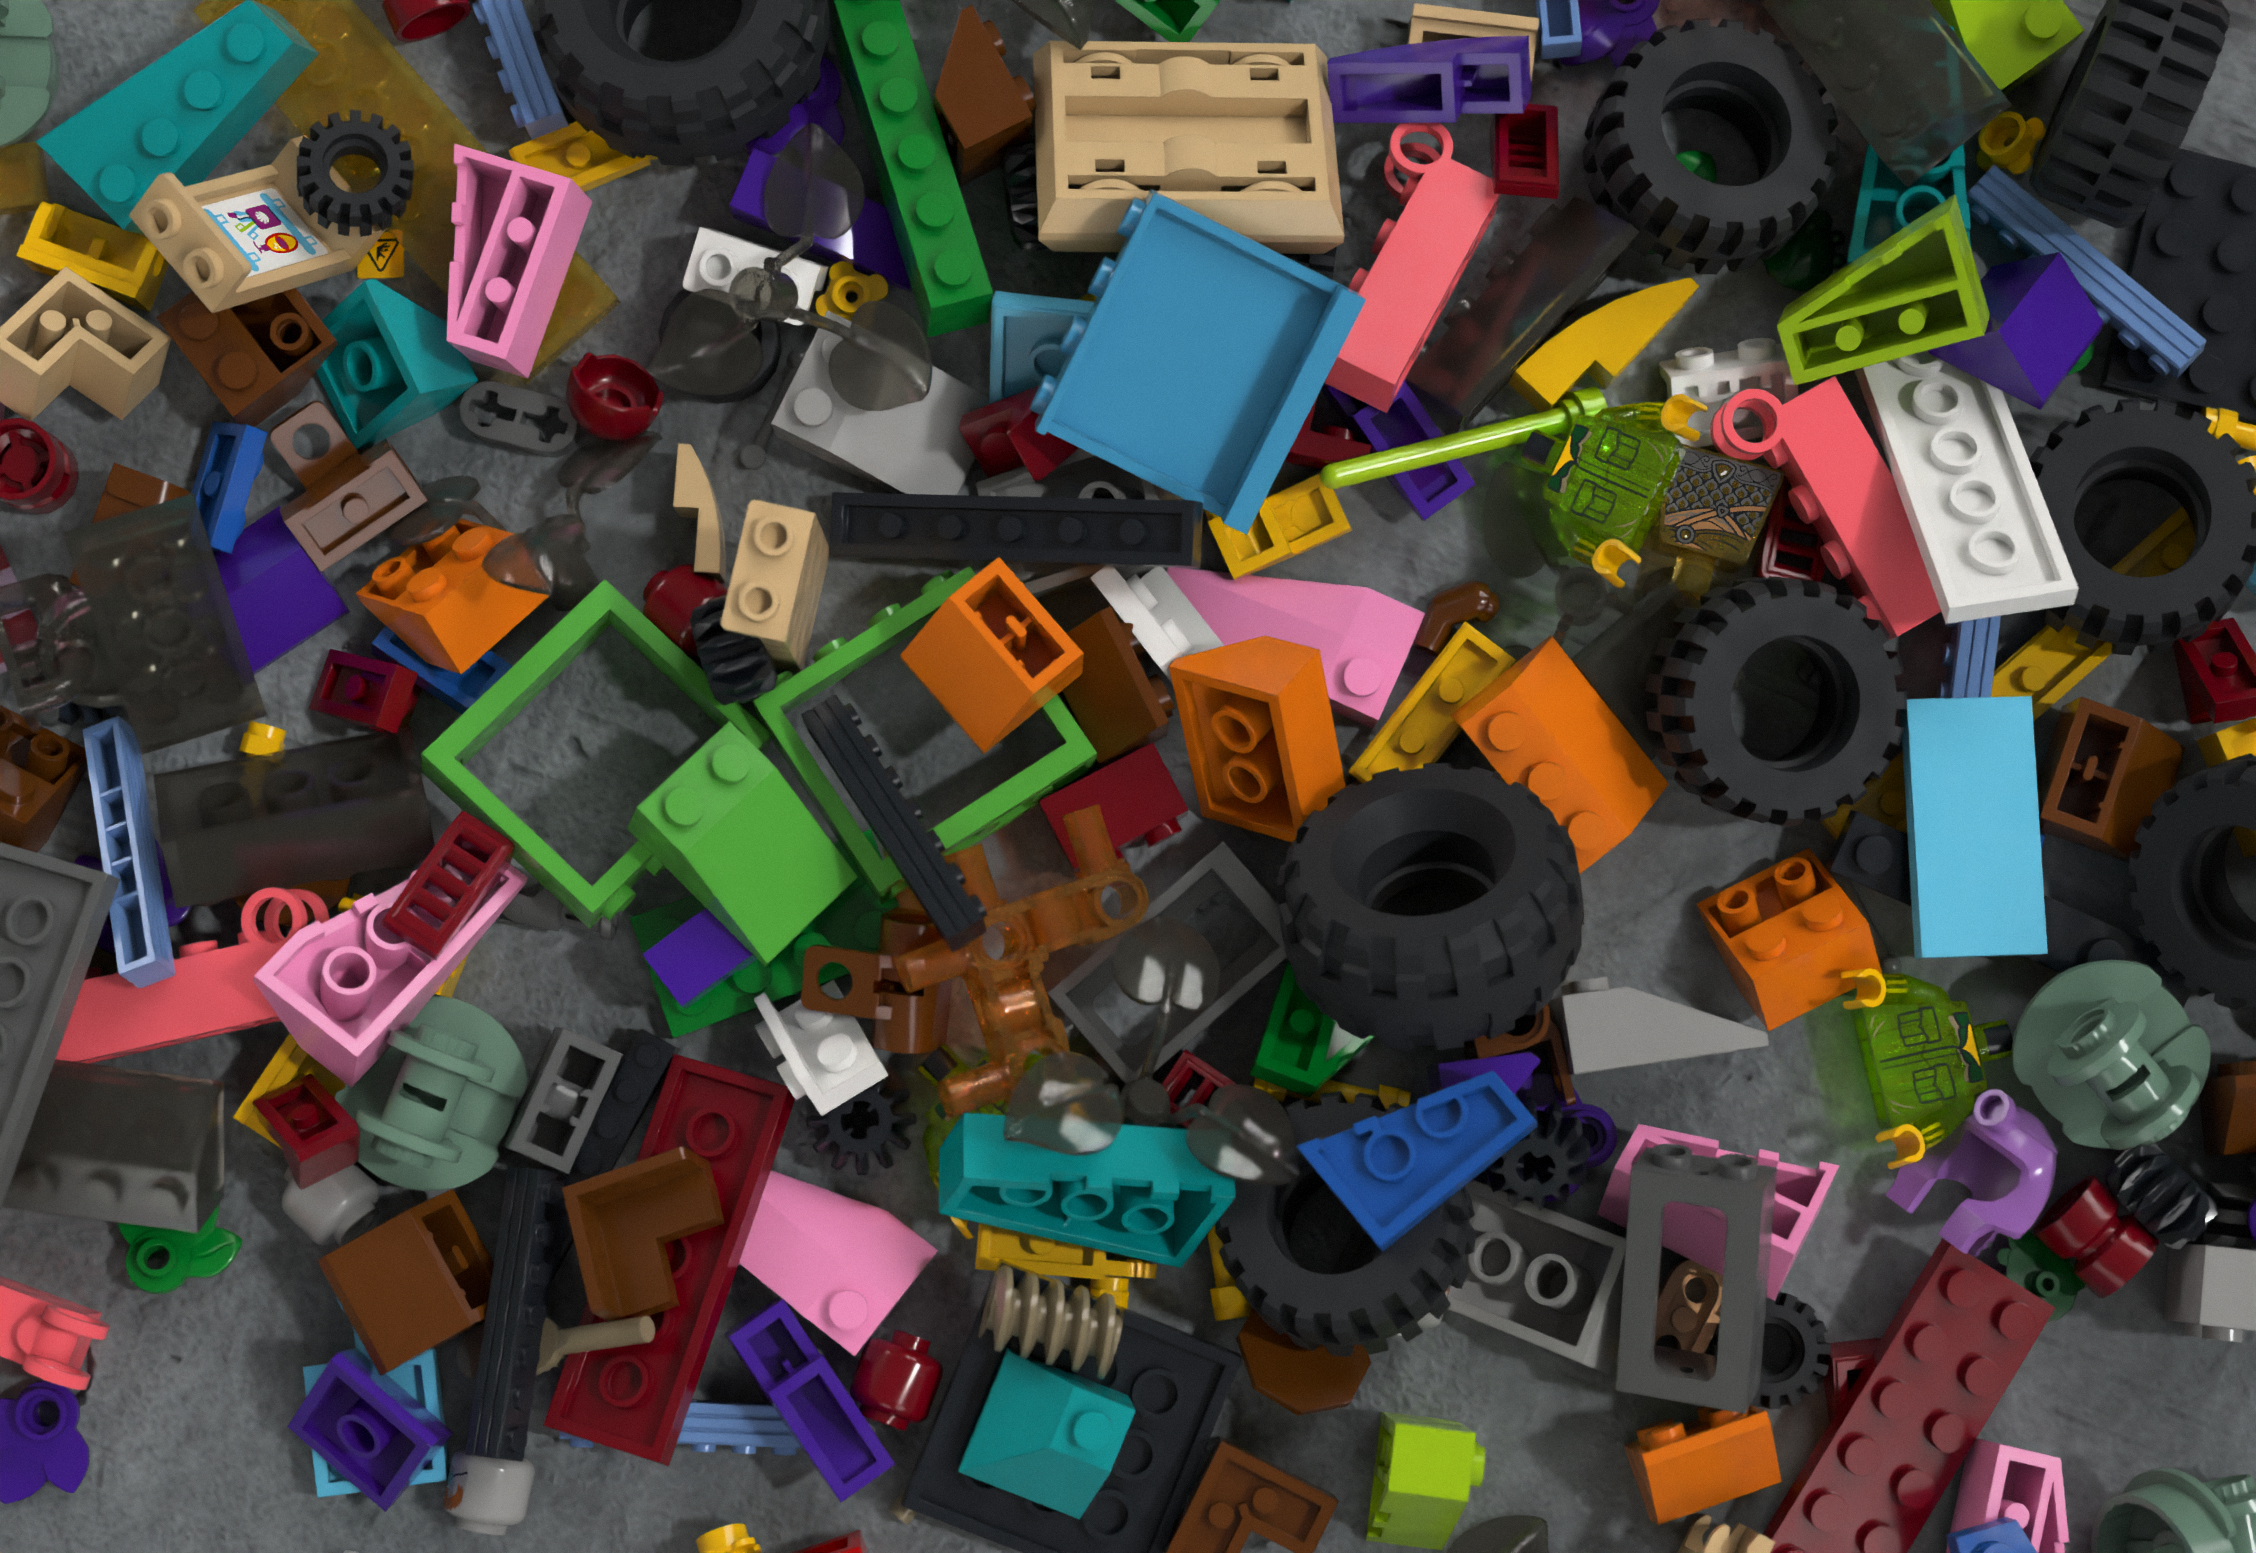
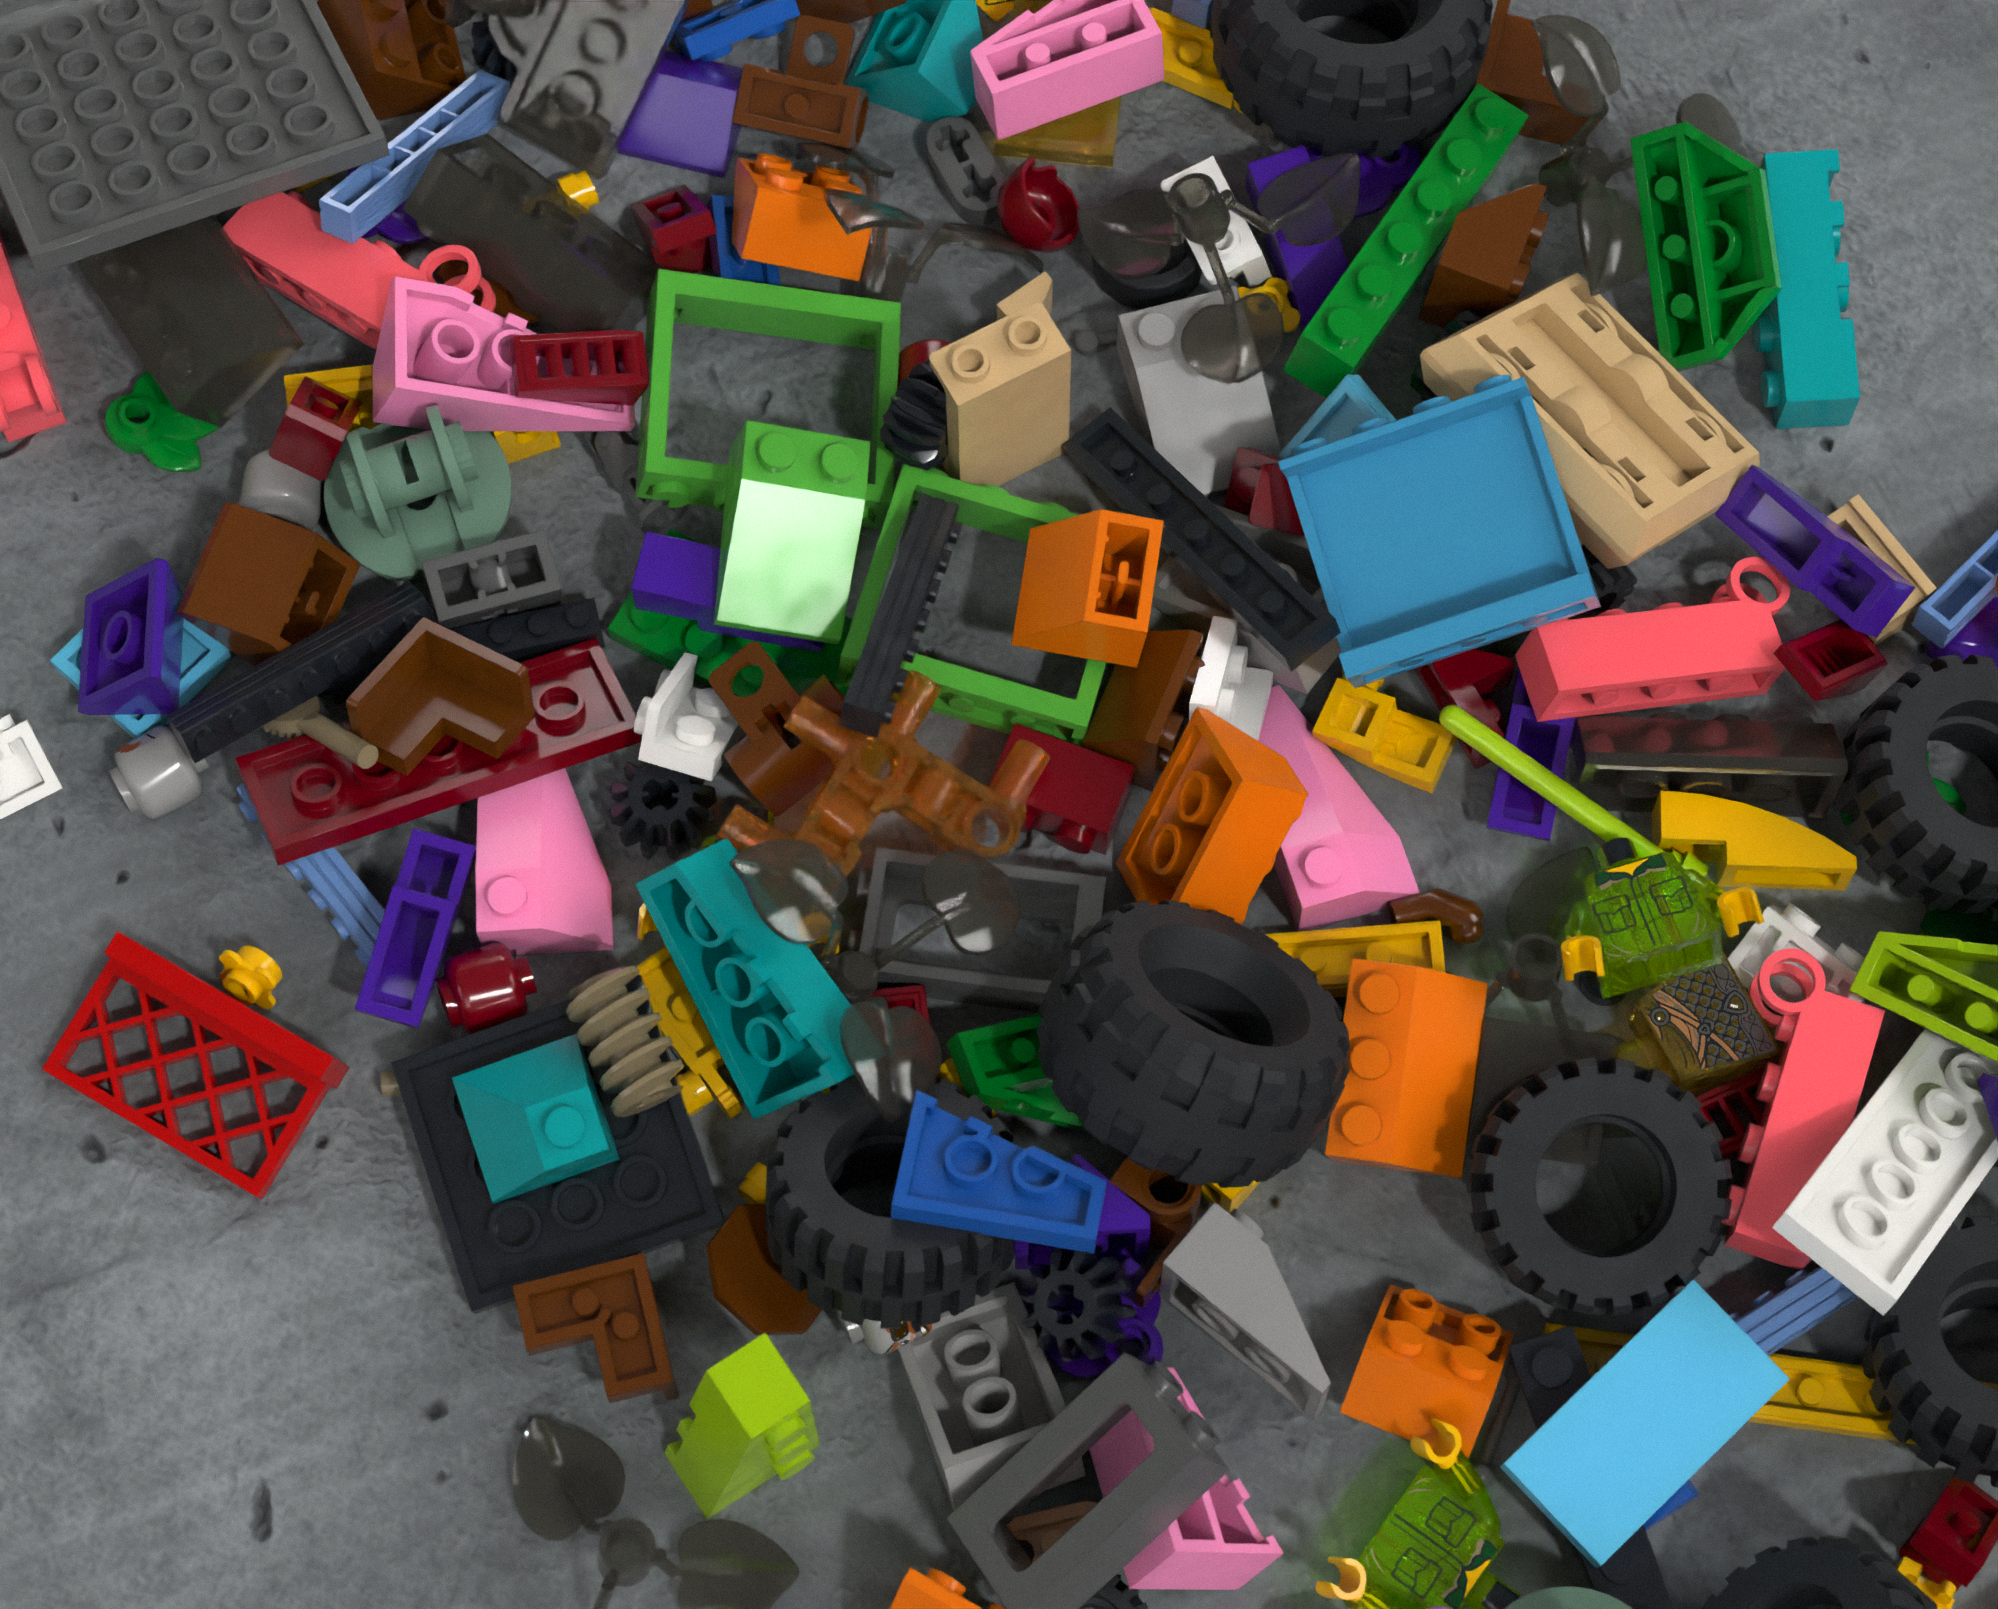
camera: 55 degrees right, 15 degrees down
(2103, 776) = (1780, 1494): reddish brown slope -> none

